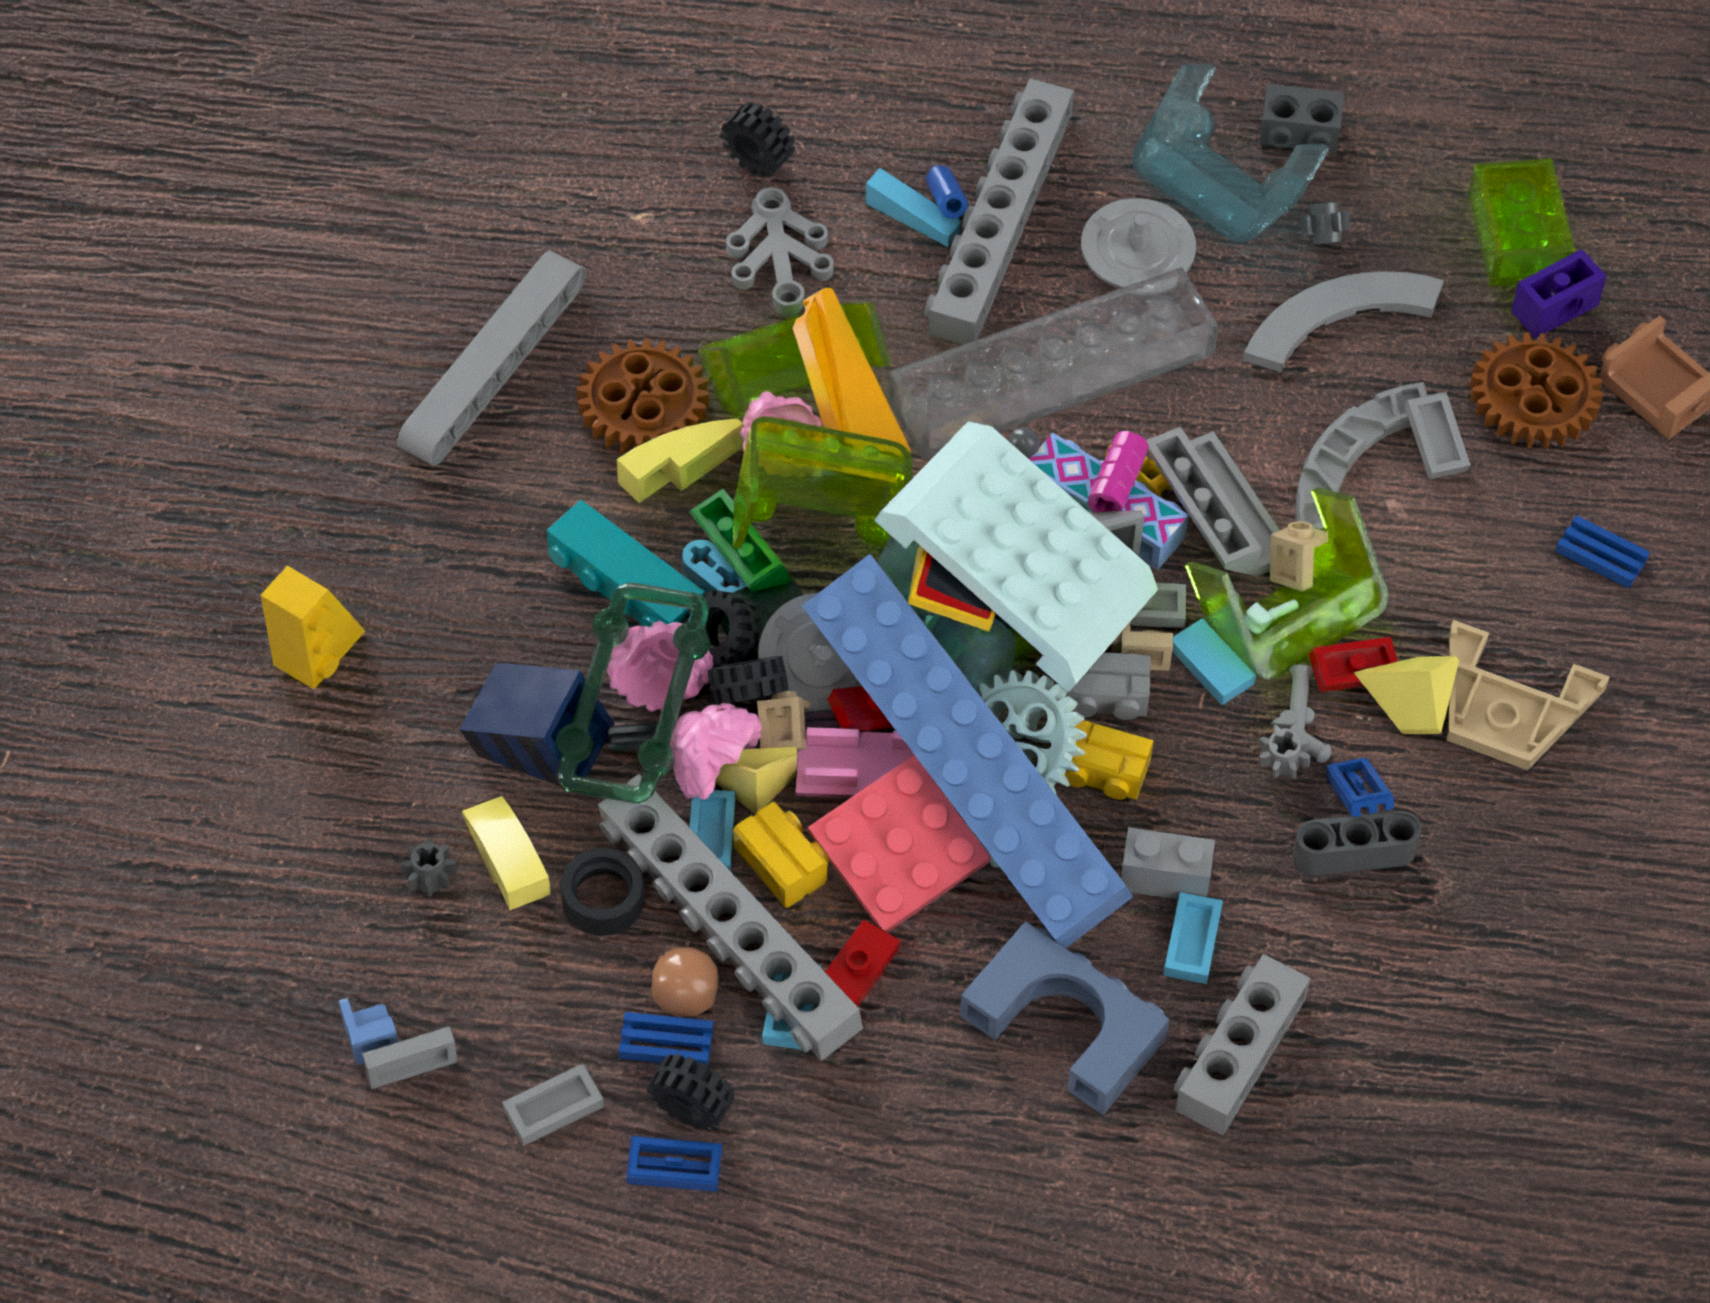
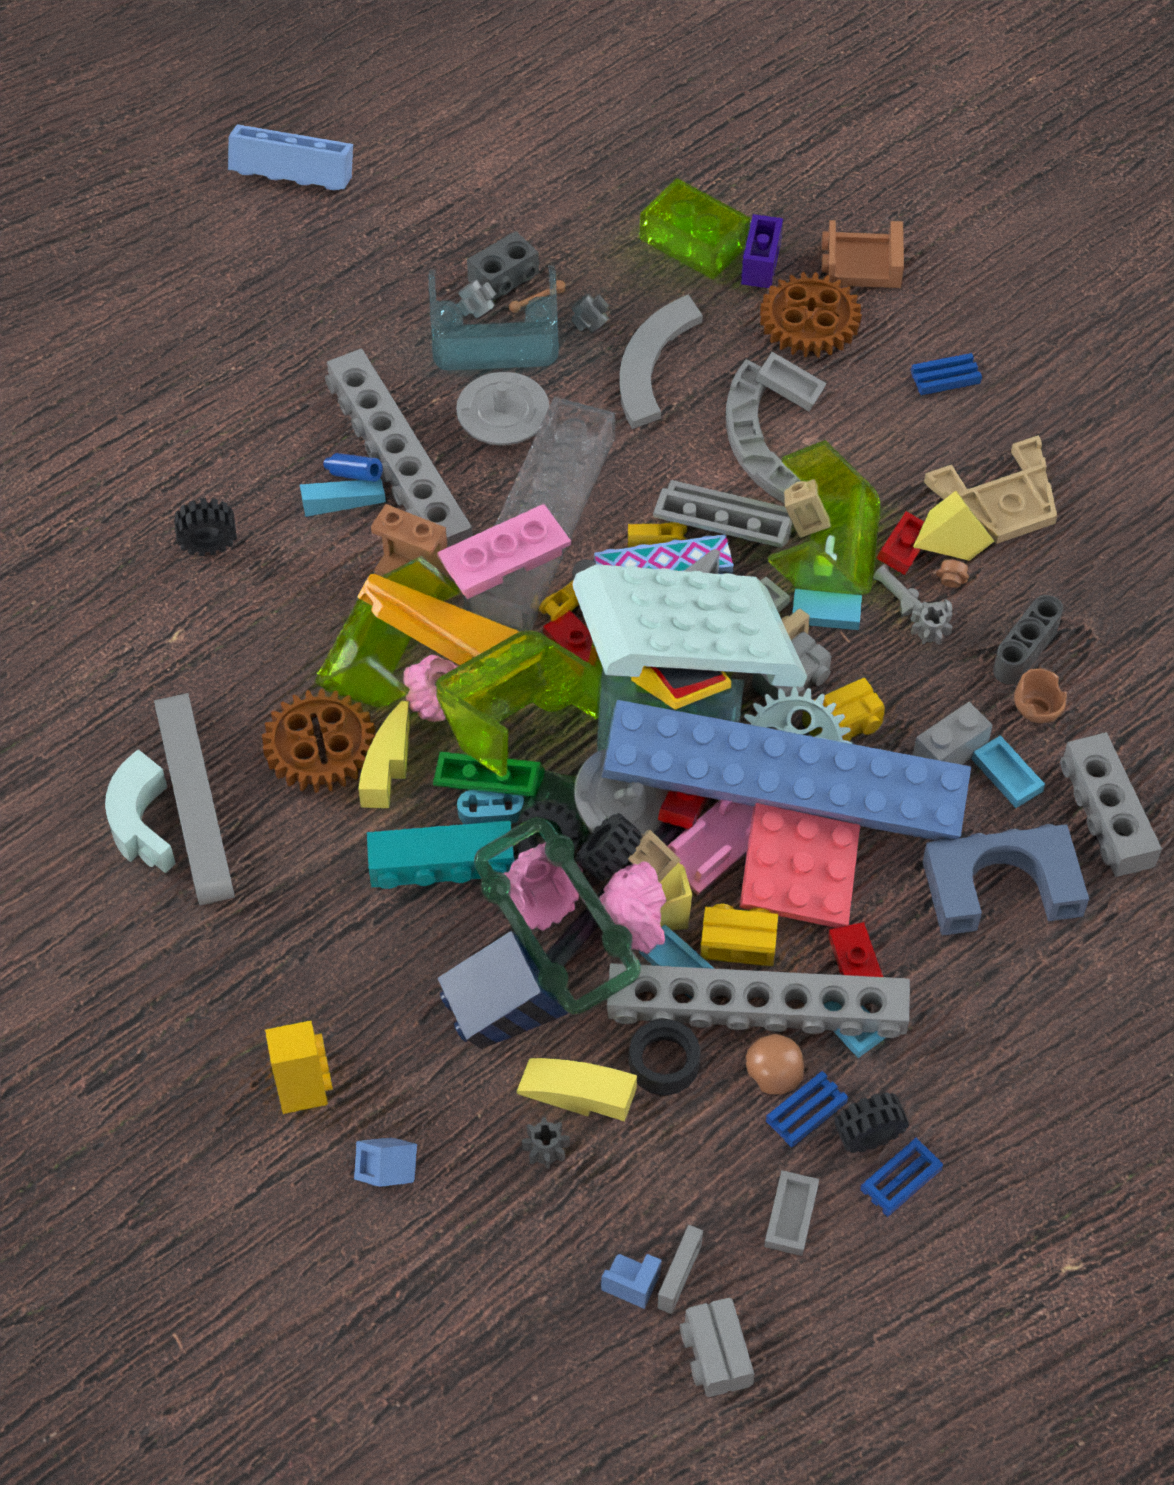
camera: 45 degrees left, 0 degrees up
(296, 768) = (385, 1161): none -> medium blue panel
(365, 1140) = (718, 1347): none -> light grey brick
(429, 319) = (127, 796): none -> light aqua arch
(779, 247) = (290, 582): light grey plant -> none
(900, 297) = (407, 538): none -> nougat panel
(935, 352) = (516, 543): none -> bright pink brick
(1118, 472) = (666, 540): dark pink axle -> none
(1237, 128) = (476, 298): none -> light grey gear
(1298, 897) = (1039, 696): none -> nougat hair
(1336, 179) = (515, 306): none -> nougat hinge
(1351, 786) = (994, 606): blue tile -> none
(1365, 729) = (953, 573): none -> nougat plate

